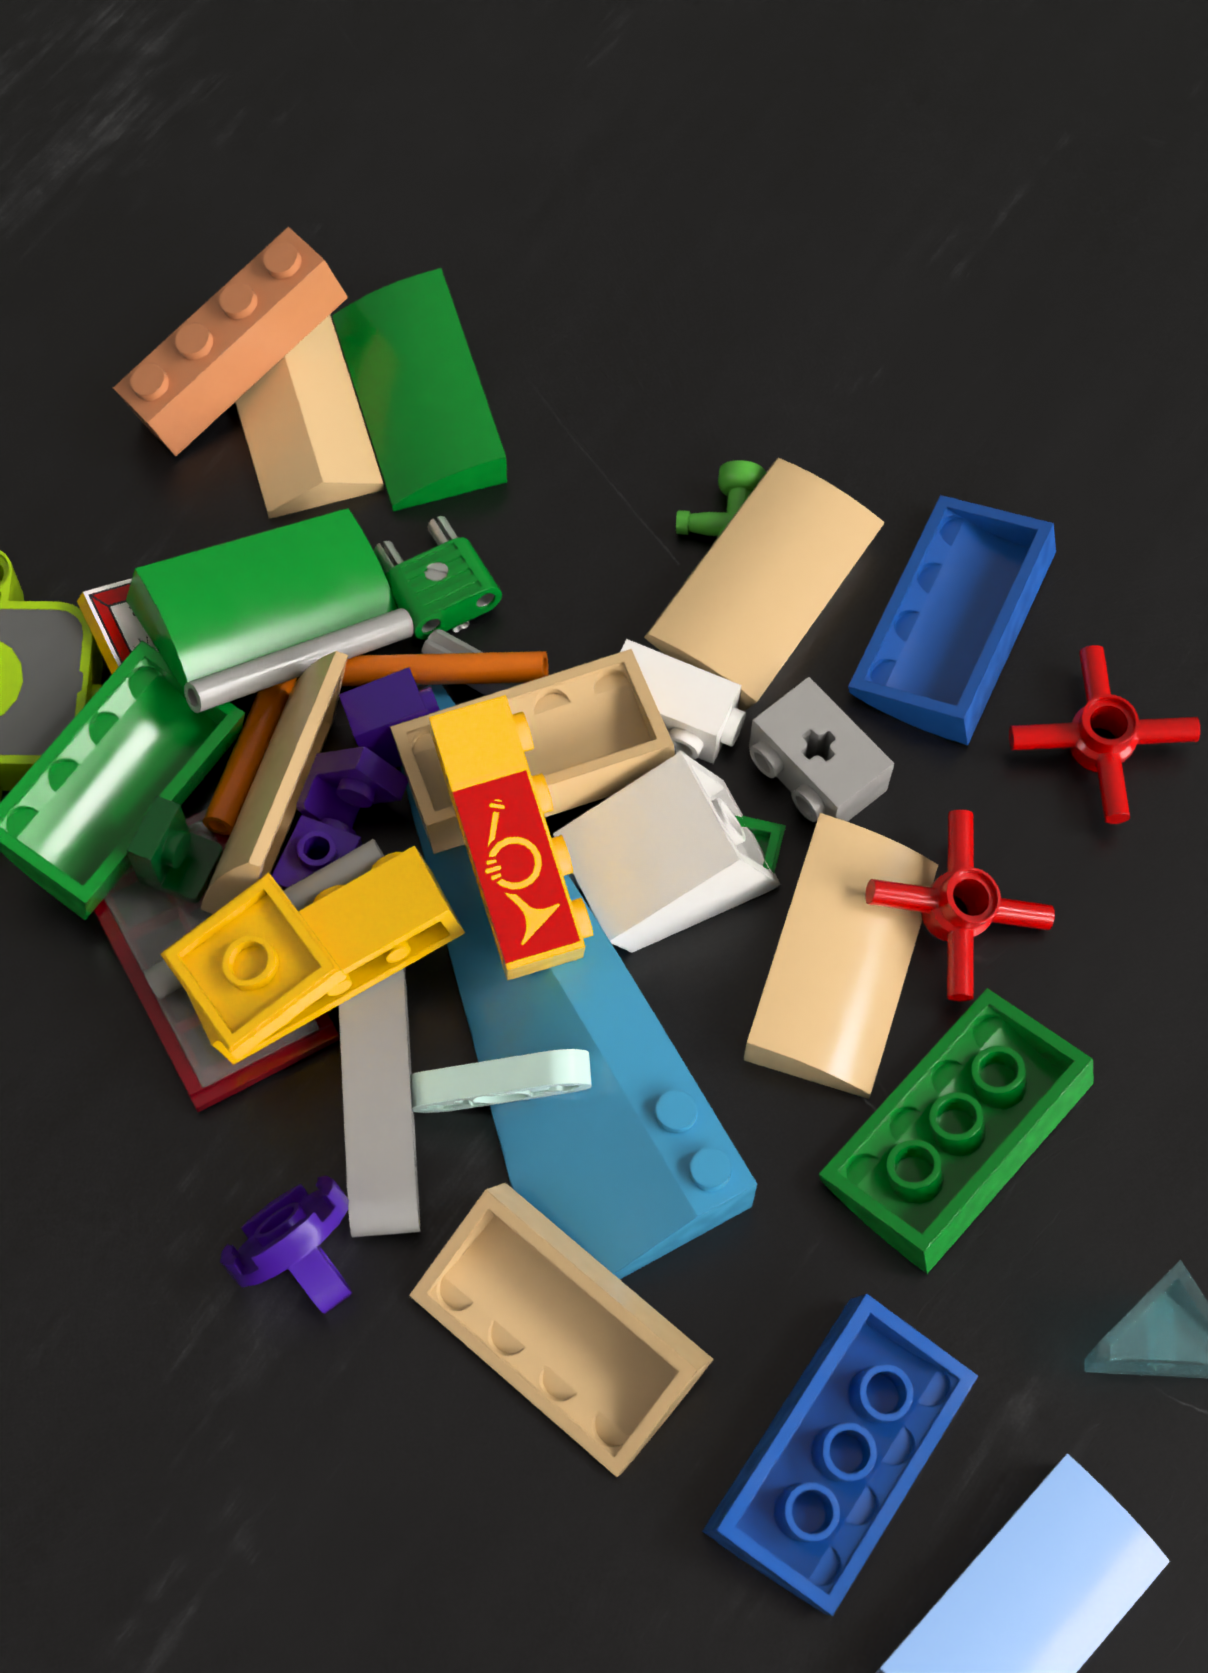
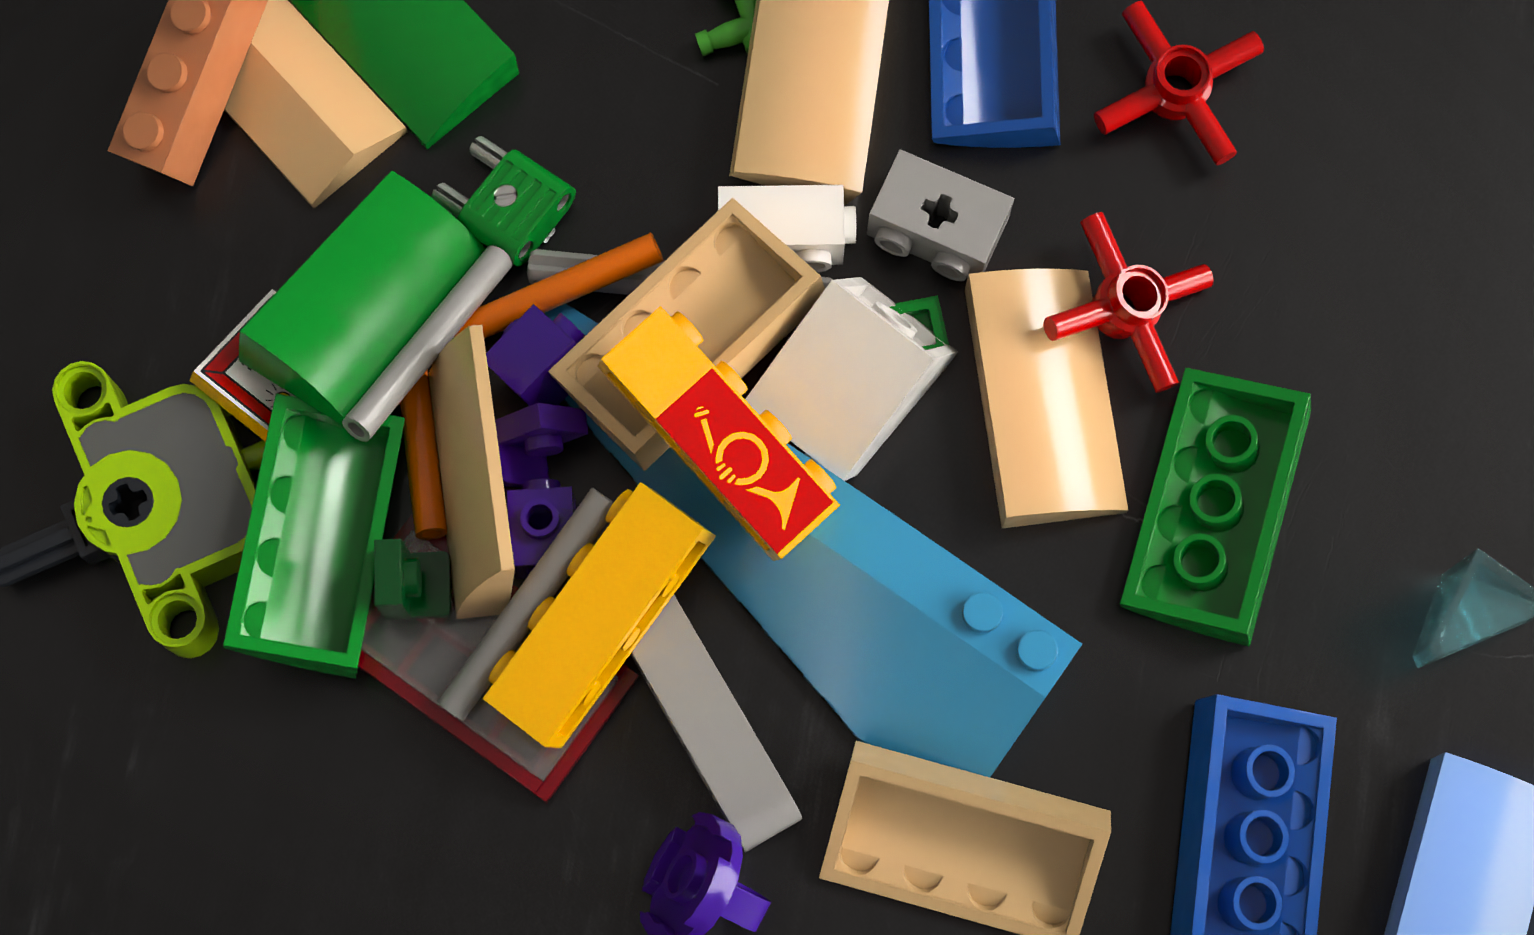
camera: 25 degrees left, 10 degrees up
(253, 966) = (548, 659): yellow tile -> none
(500, 1081) = (812, 653): light aqua beam -> none

